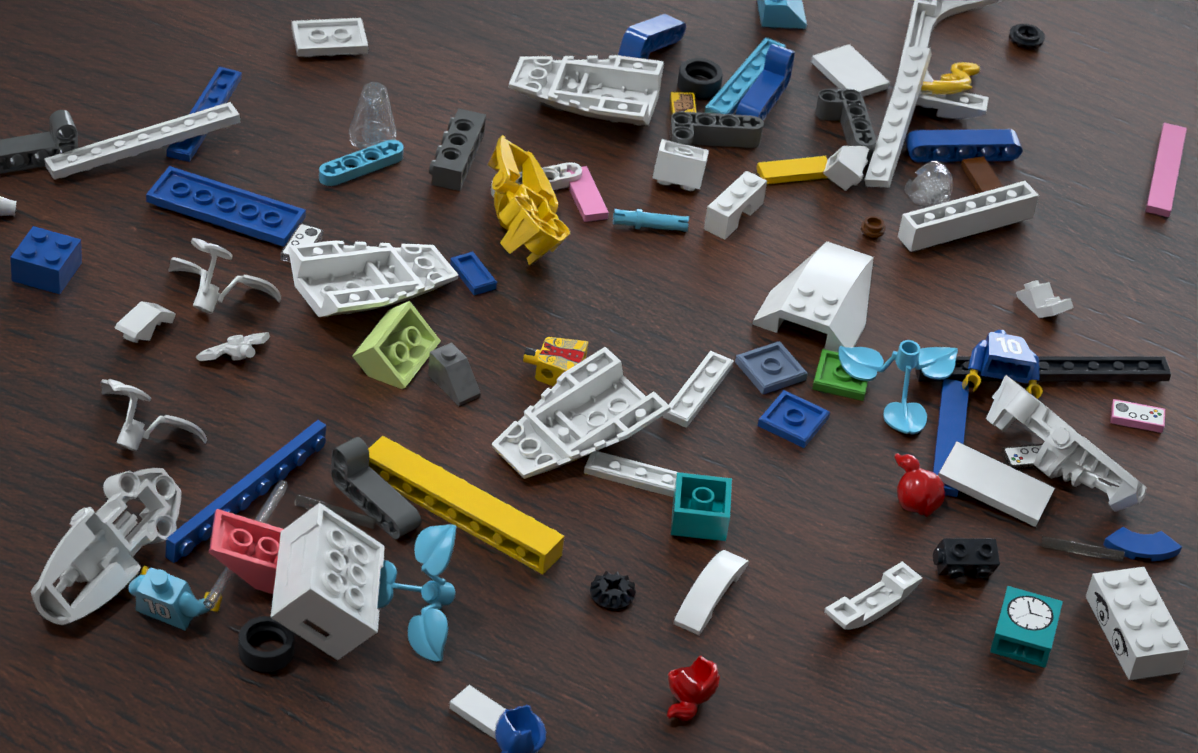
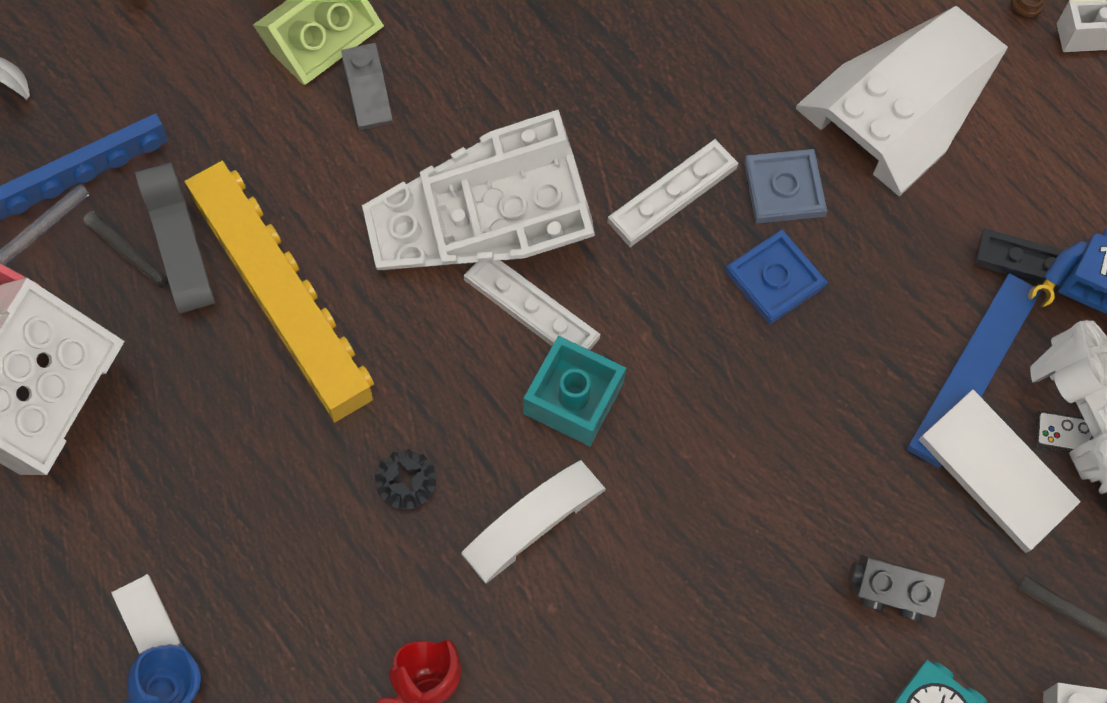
camera: 25 degrees right, 25 degrees up
(426, 632) = (149, 389): medium azure plant -> none
(555, 358) = (507, 97): torso -> none
(835, 380) = (875, 225): bright green tile -> none
(877, 600) = (737, 610): white slope -> none
(918, 488) = (885, 448): red hair -> none
(934, 362) = (1003, 248): medium azure plant -> none

